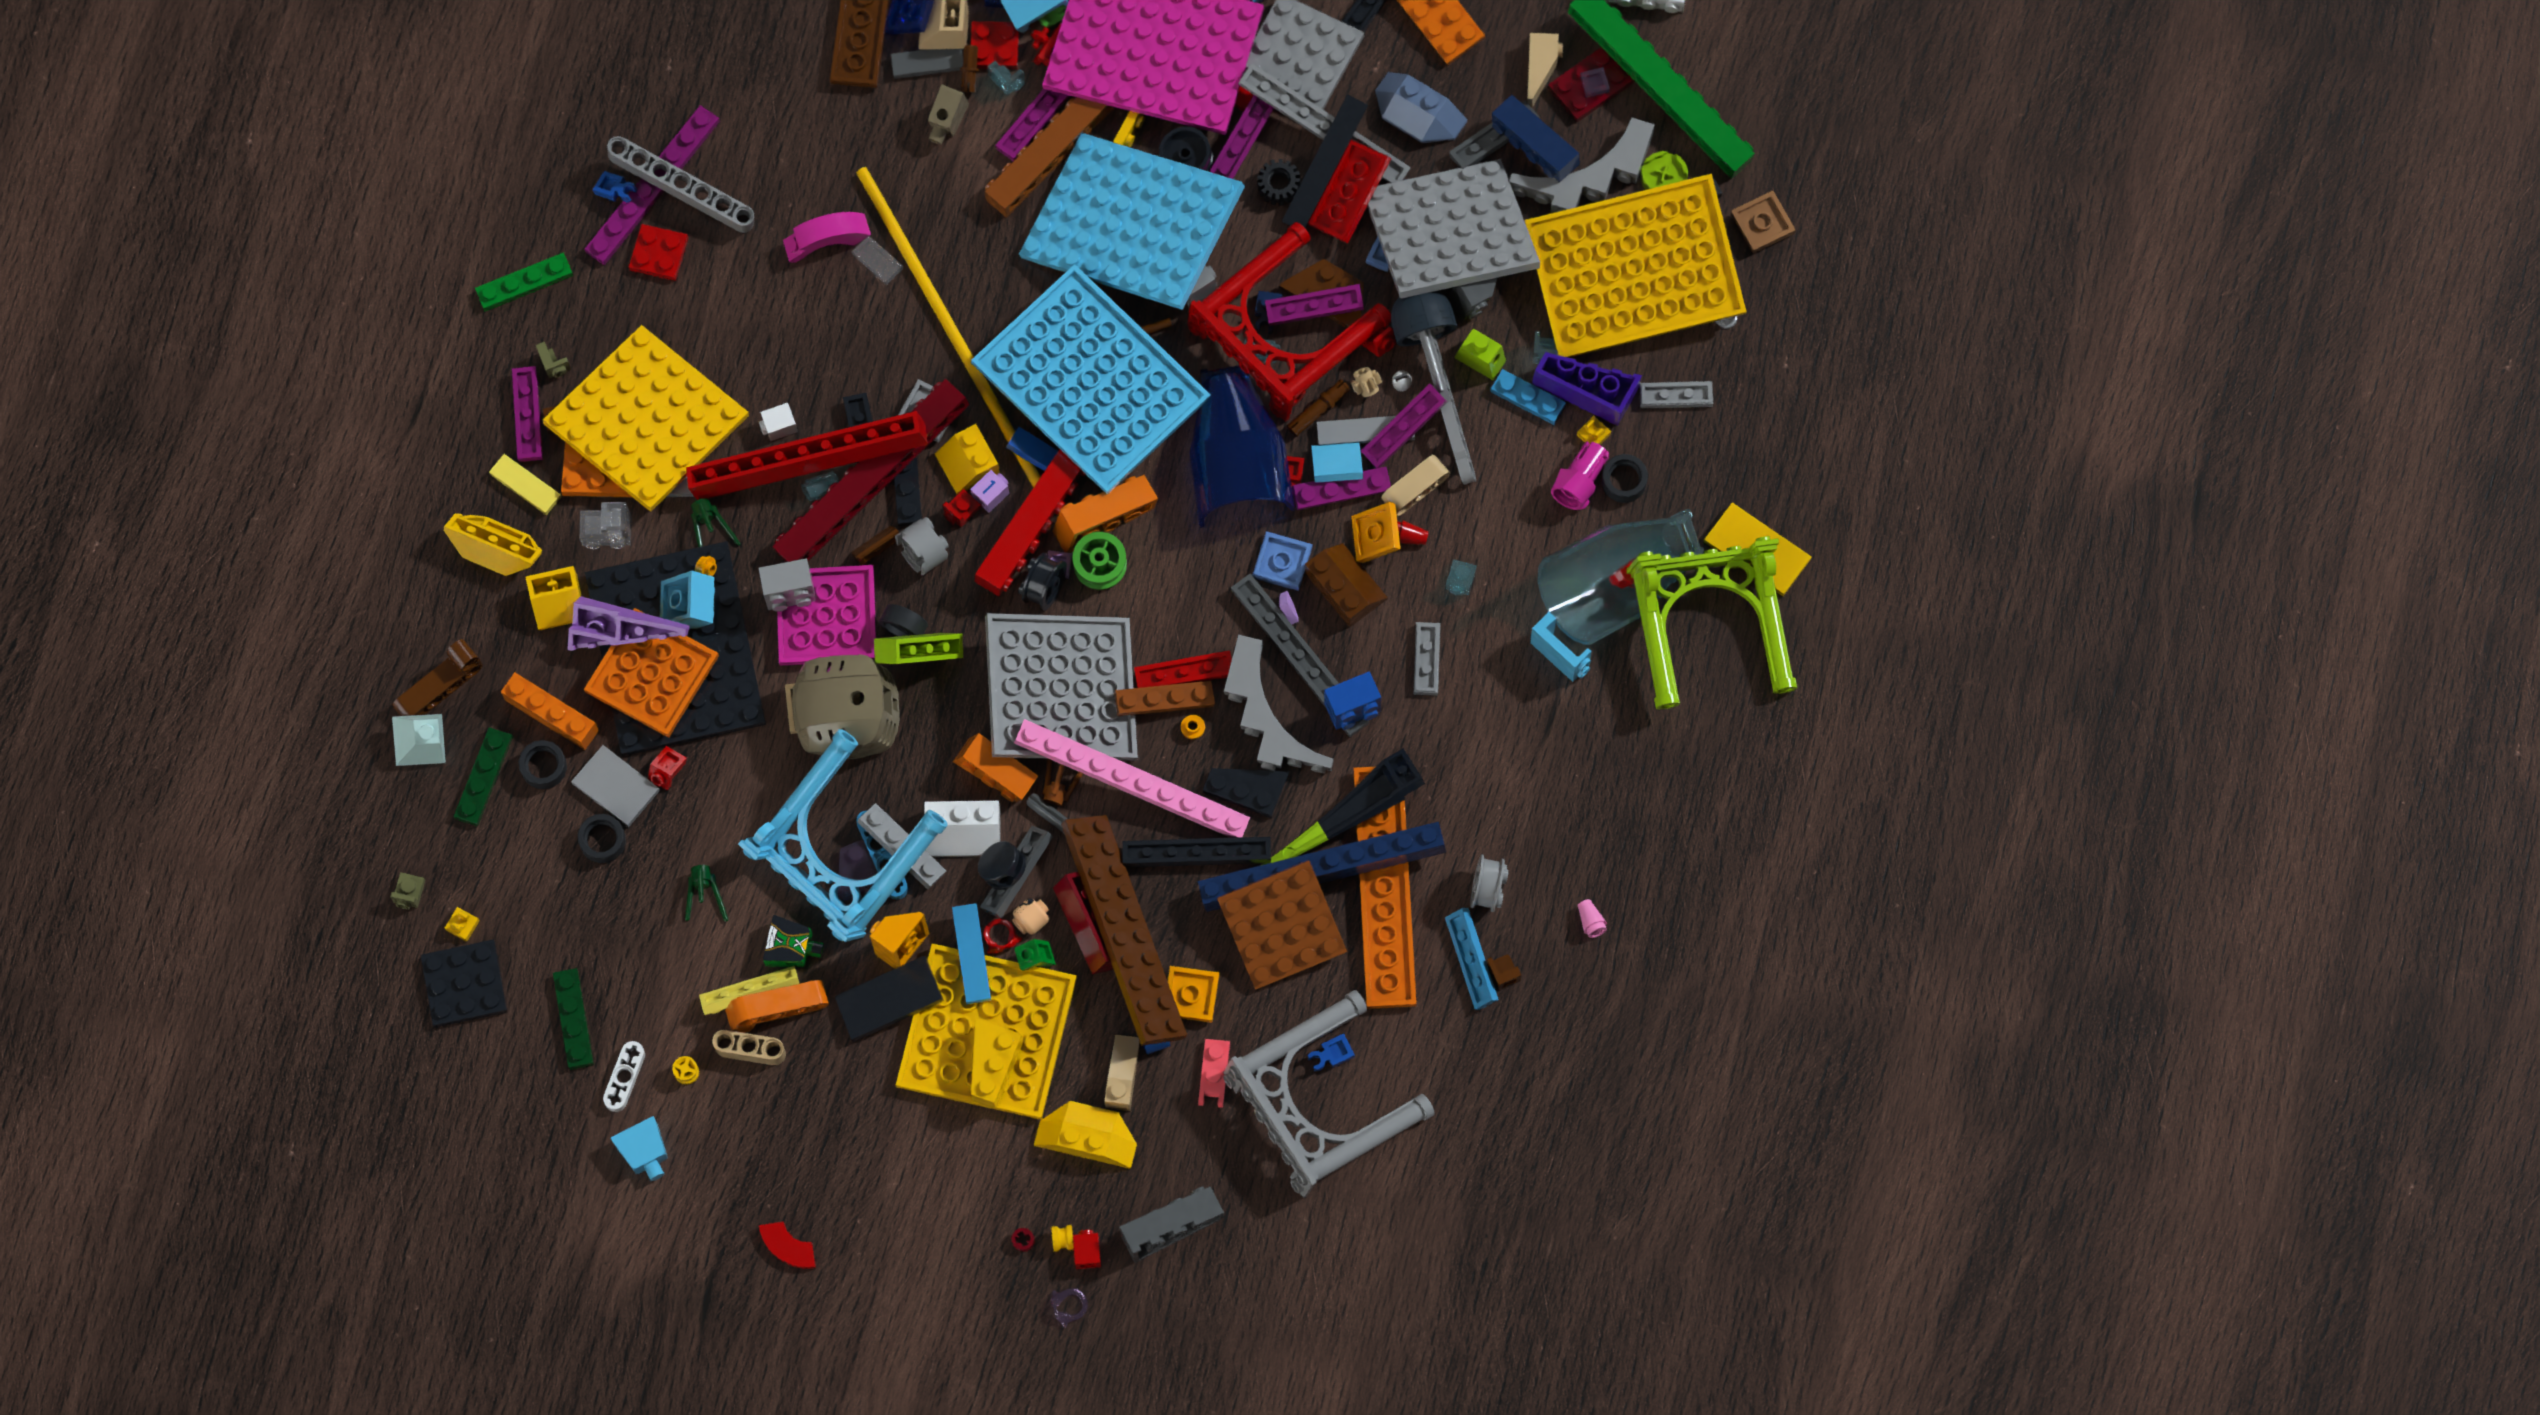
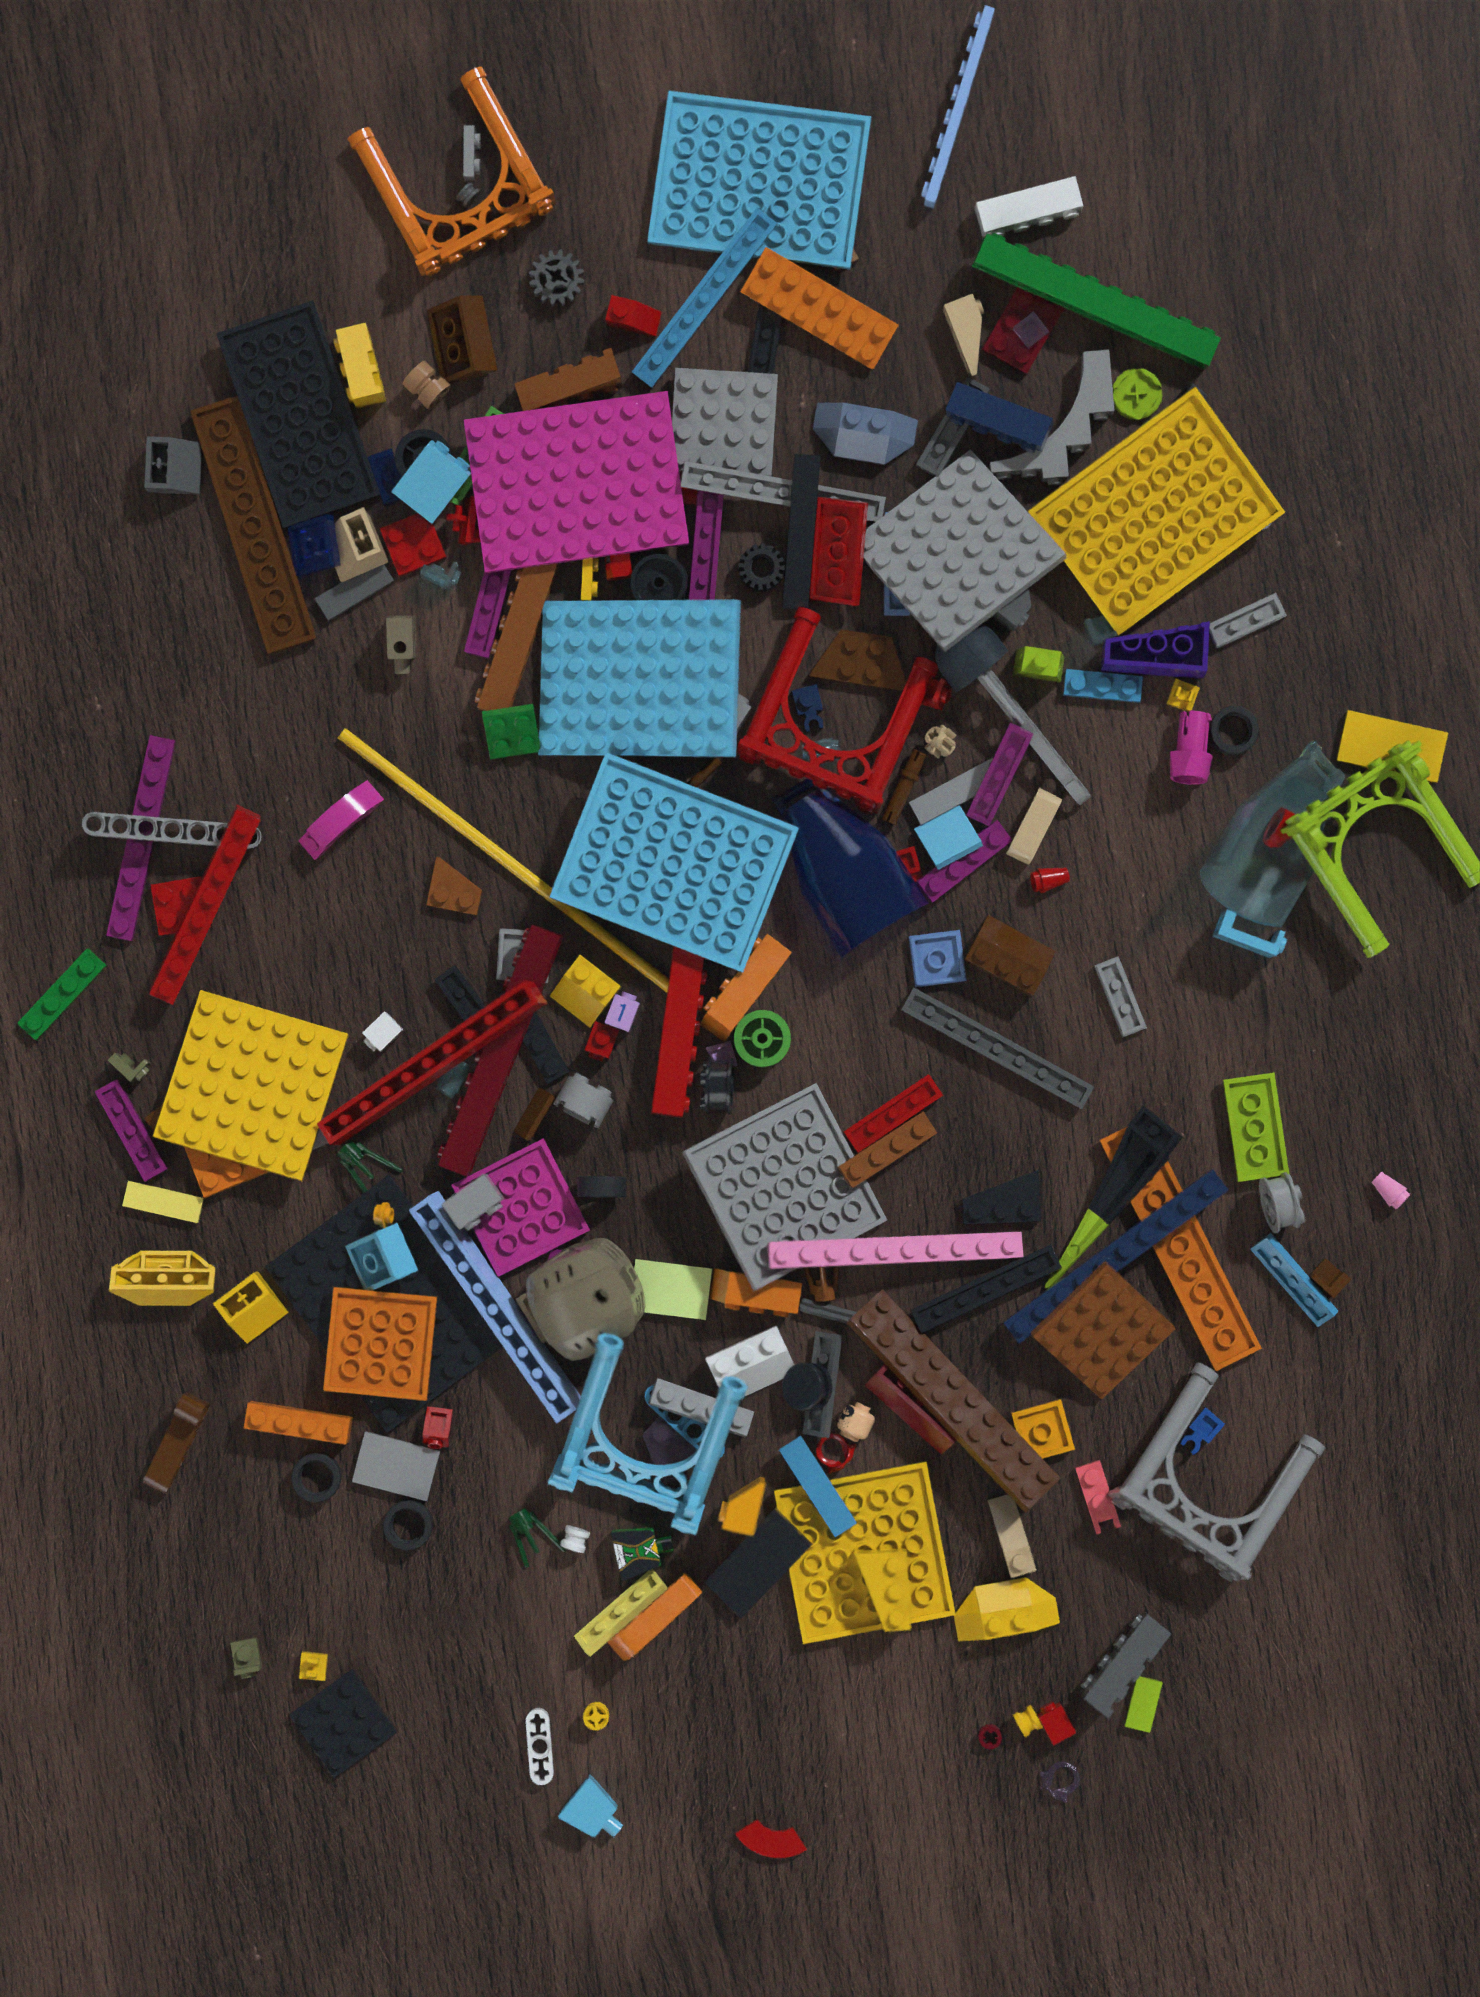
camera: 25 degrees left, 15 degrees up
(418, 739) = (184, 1505): light aqua slope -> none
(483, 776) = (263, 1512): dark green plate -> none
(573, 1018) = (464, 1711): dark green plate -> none
(606, 526) = (264, 1213): clear brick -> none
(606, 624) = (312, 1317): medium lavender wedge -> none
(612, 186) = (103, 858): blue plate -> none
(678, 252) = (204, 904): none -> red brick
(739, 911) = (575, 1538): none -> white wheel
(739, 1040) = (637, 1677): tan beam -> none
(765, 684) = (497, 1307): none -> light blue brick
(877, 260) = (401, 820): clear tile -> none
(893, 334) = (453, 890): none -> dark orange wing
(918, 648) = (632, 1213): lime brick -> none
(926, 739) = (674, 1288): none -> yellowish green tile
(969, 68) = (401, 581): reddish brown axle -> none
(1004, 223) = (511, 731): none -> green plate
(1031, 449) = (644, 952): blue tile -> none
(1034, 954) = (878, 1459): green bracket -> none
(1157, 130) = (618, 567): none -> red rock
(1172, 1269) = (1143, 1704): none -> lime tile
(1192, 734) = (934, 1165): light orange plate -> none
(1276, 744) = (1015, 1148): light grey arch -> none
(1287, 607) = (964, 1004): lavender tile -> none
(1314, 304) = (856, 685): magenta plate -> none
(1353, 701) = (1075, 1080): blue brick -> none
(1375, 532) = (1018, 893): light orange plate -> none
(1403, 384) = (976, 726): white hinge -> none
(1460, 577) = (1118, 901): clear light blue bracket -> none
(1496, 813) = (1255, 1127): none -> lime plate
(1763, 222) = (1256, 403): medium nougat plate -> none

